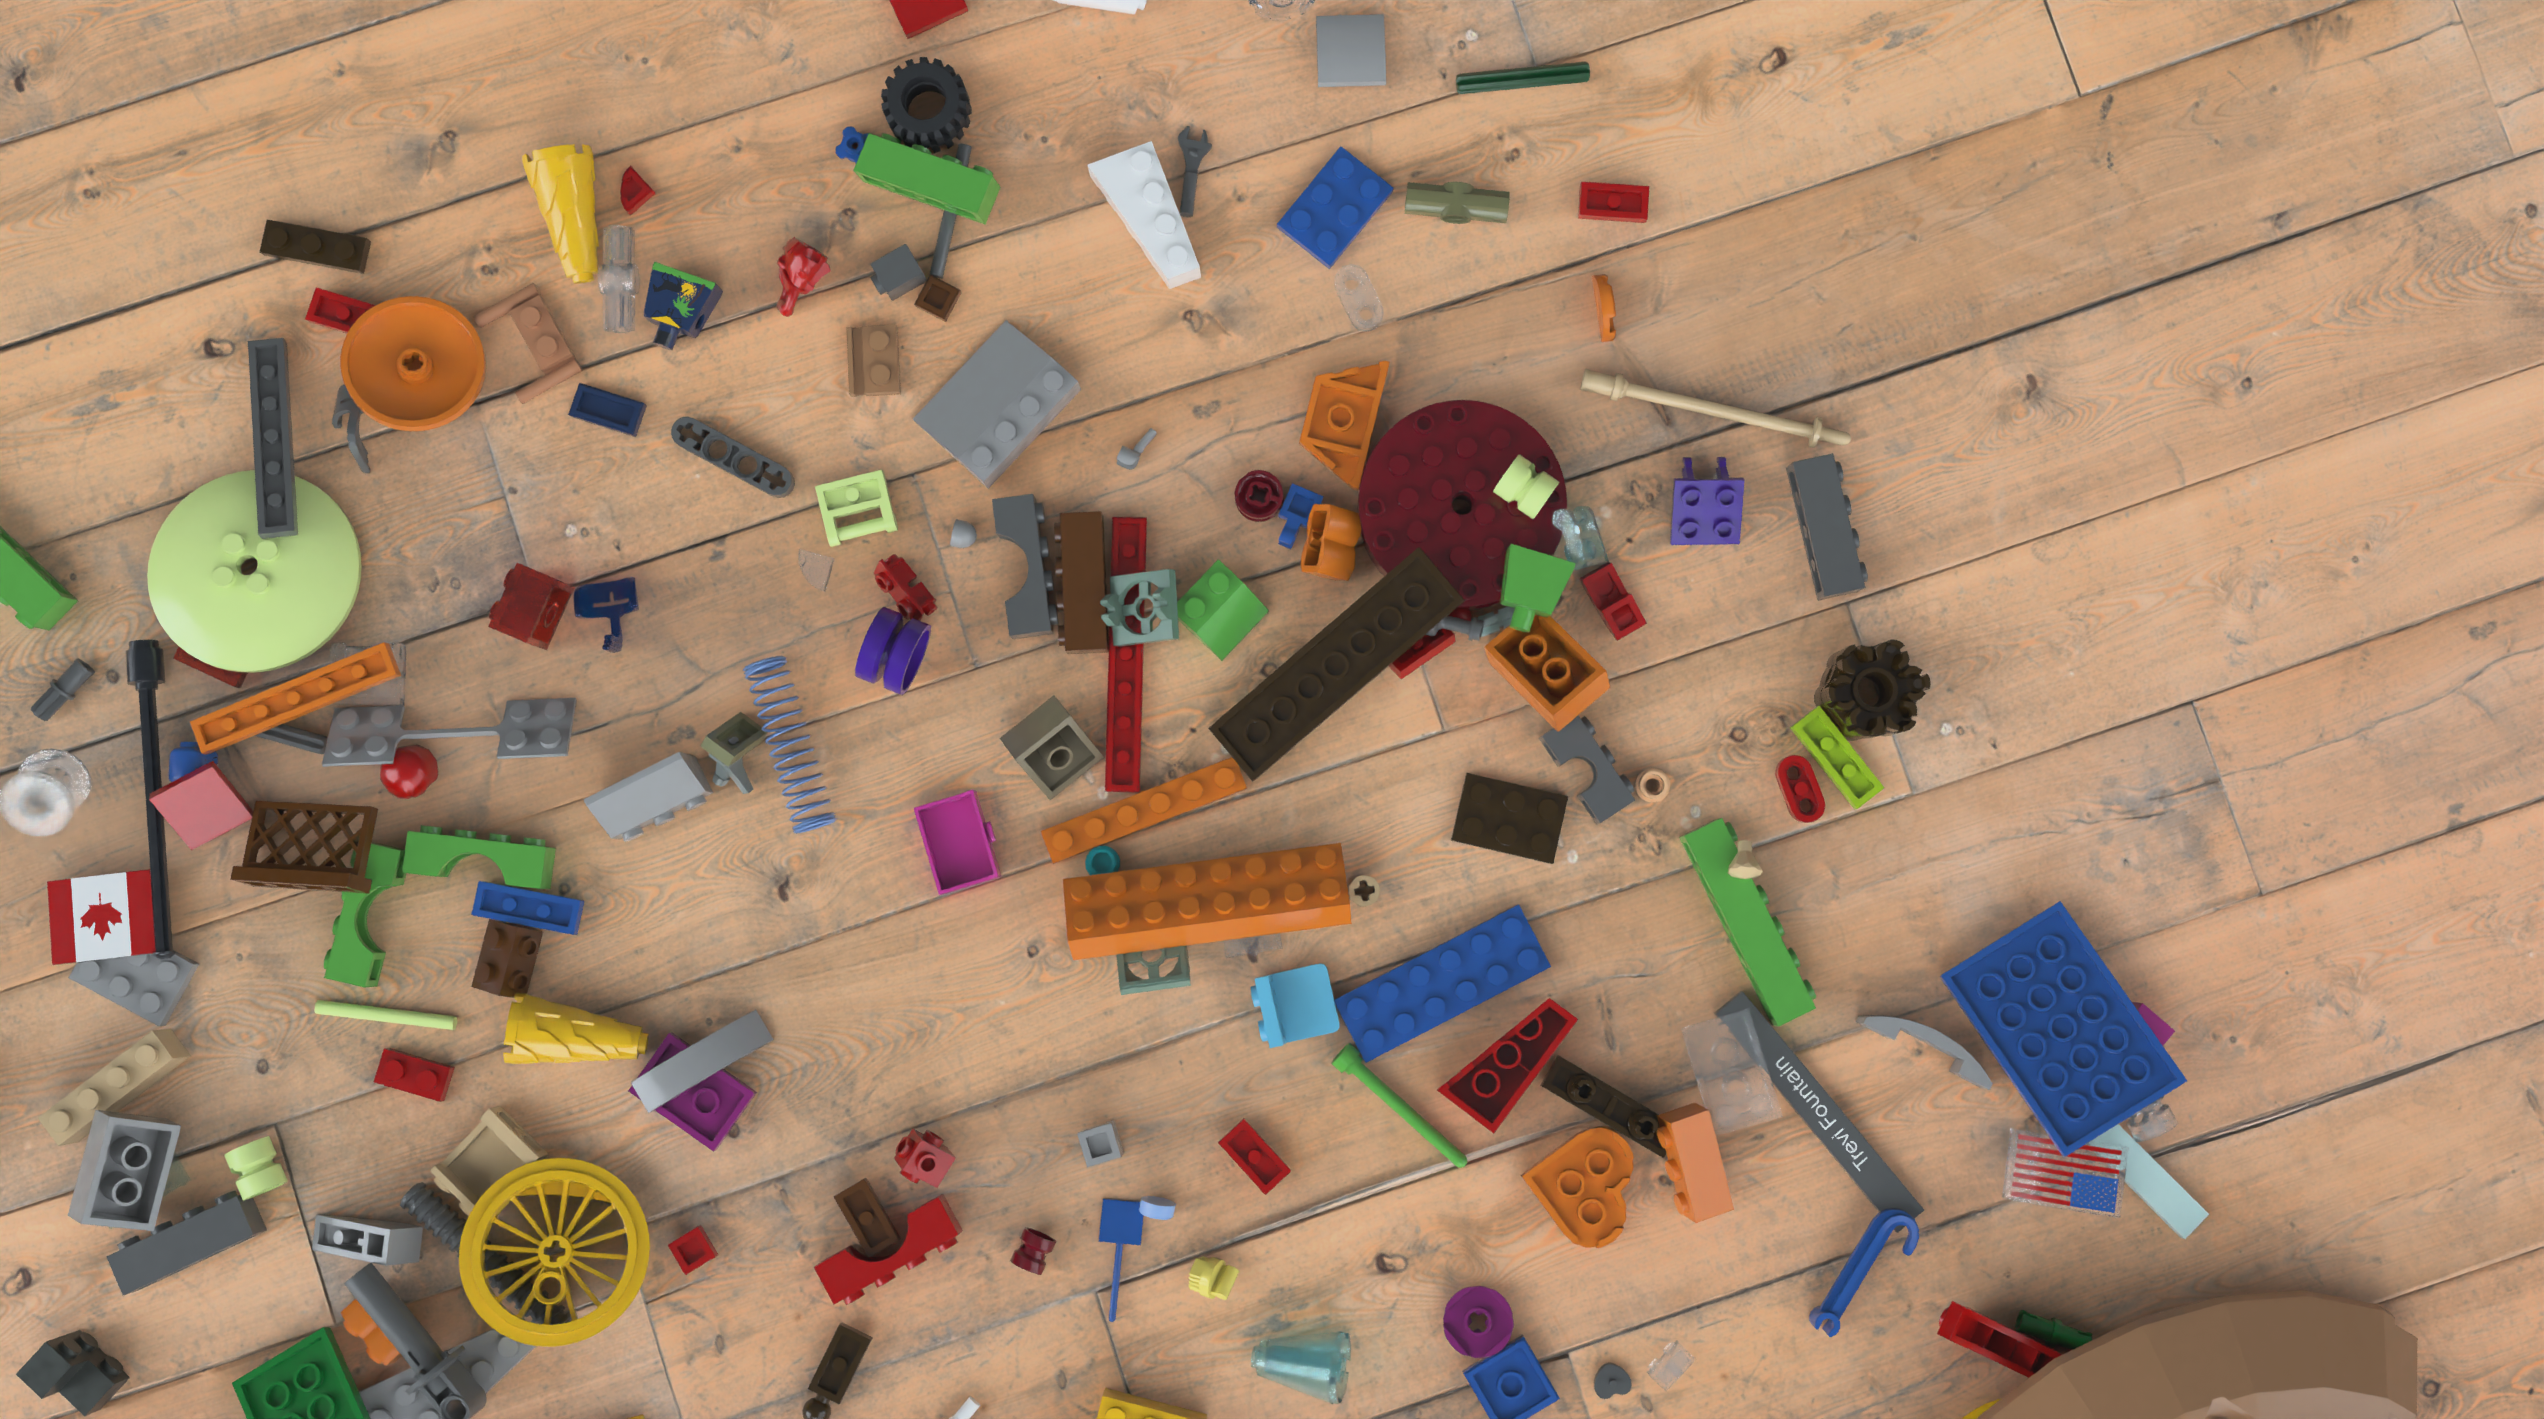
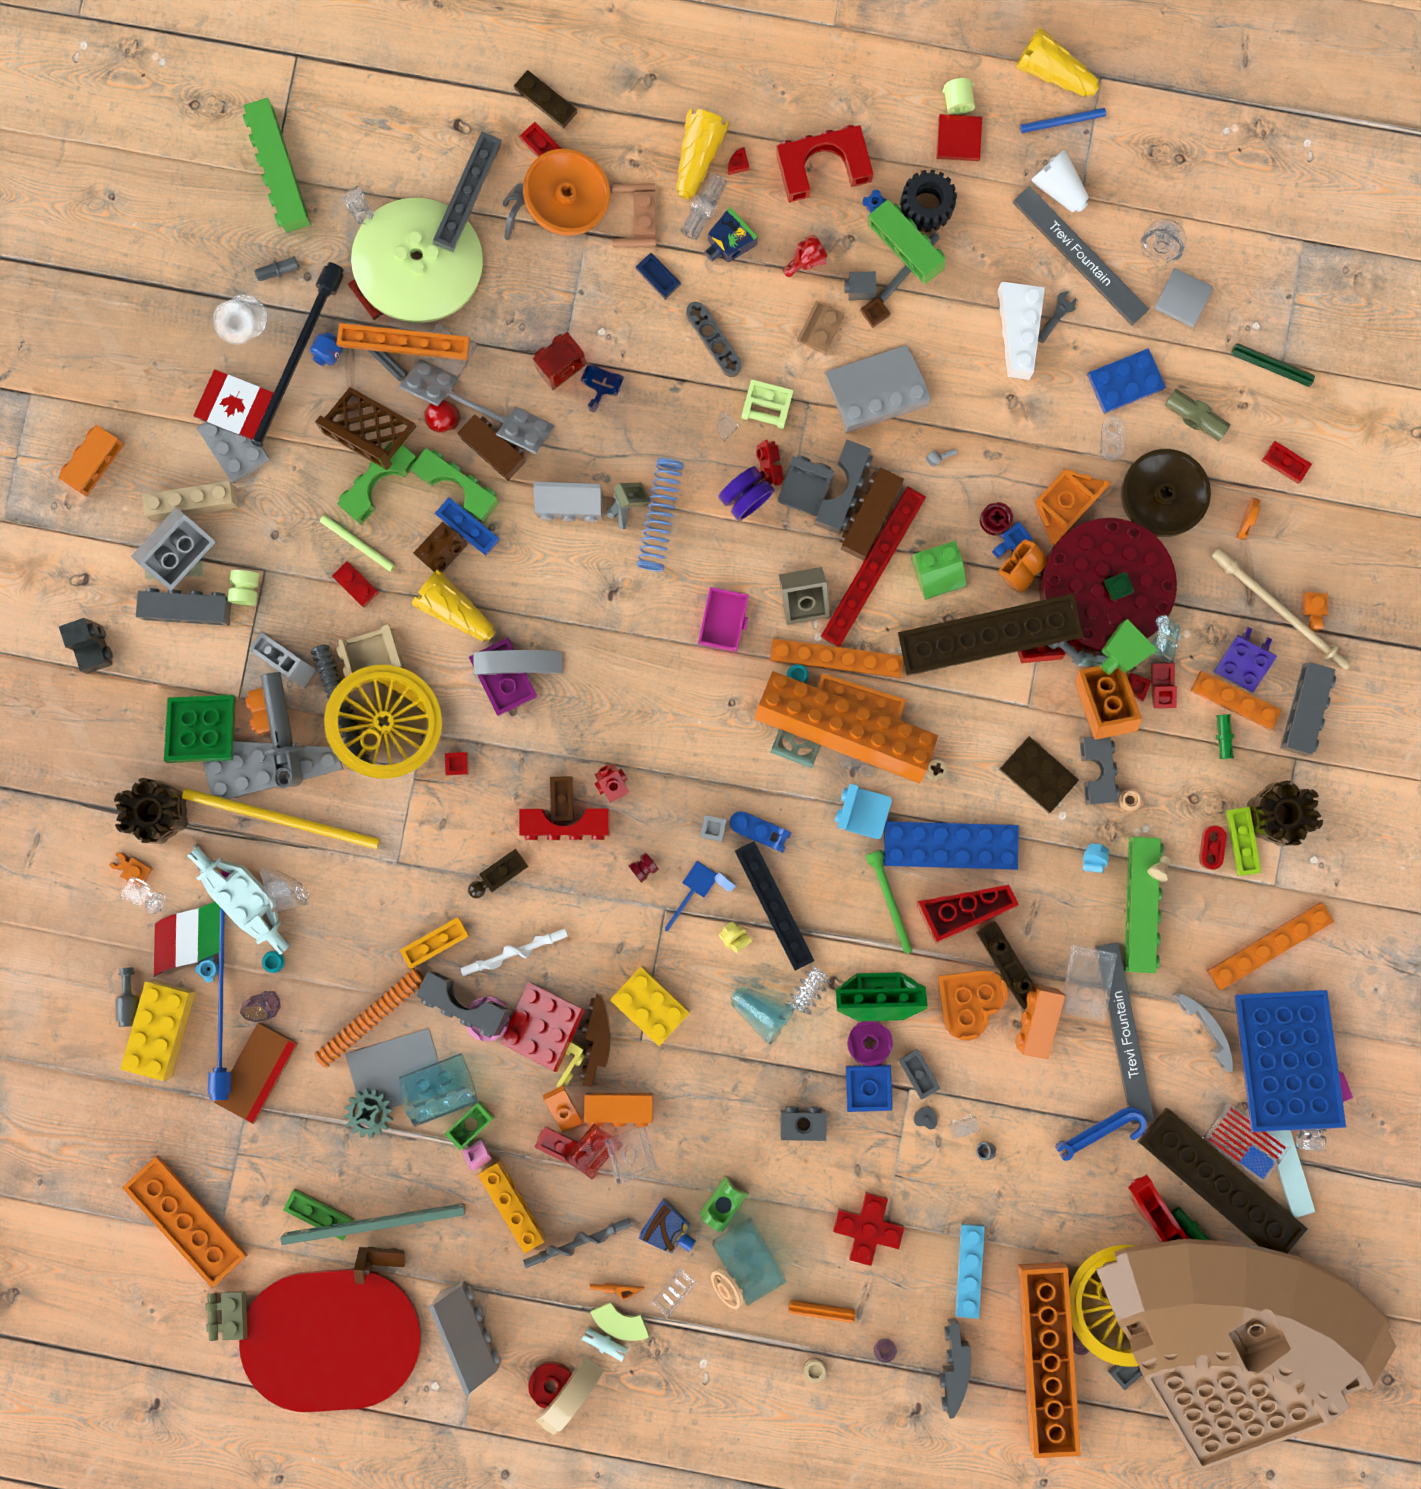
camera: 30 degrees right, 0 degrees up
(127, 539) = (357, 205): none -> clear piece
(201, 805) = (320, 373): tile -> none
(502, 779) = (492, 448): none -> reddish brown brick
(768, 85) = (845, 143): none -> red arch
(963, 534) = (818, 451): light grey hinge -> none
(970, 593) = (805, 485): none -> dark grey bracket
(1163, 601) = (911, 551): sand green piece -> none
(1165, 1109) = (759, 830): none -> blue plate
(1178, 68) = (1080, 256): none -> dark grey tile
(1207, 844) = (862, 695): none -> orange plate
(1243, 1203) = (774, 906): none -> black plate
(1254, 1156) = (794, 883): red plate -> none
(1355, 1295) = (809, 990): none -> clear piece
(1457, 1250) = (881, 997): none -> green wedge
(1471, 334) = (1166, 492): none -> dark brown dish
(1476, 502) = (1118, 586): none -> dark green plate
(1526, 486) = (1152, 592): yellowish green wheel -> none
(1569, 1326) = (919, 1074): none -> dark grey plate
(1579, 620) = (1139, 686): none -> red tile
(1649, 892) = (1095, 858): none -> medium azure piece
(1720, 1388) = (986, 1155): none -> dark grey hinge
(1722, 567) = (1236, 700): none -> orange plate
(1734, 626) = (1225, 736): none -> green pin
(1760, 379) = (1315, 606): none -> orange plate
(1951, 881) = (1270, 946): none -> orange plate
(2063, 1247) = (1221, 1183): none -> dark brown plate

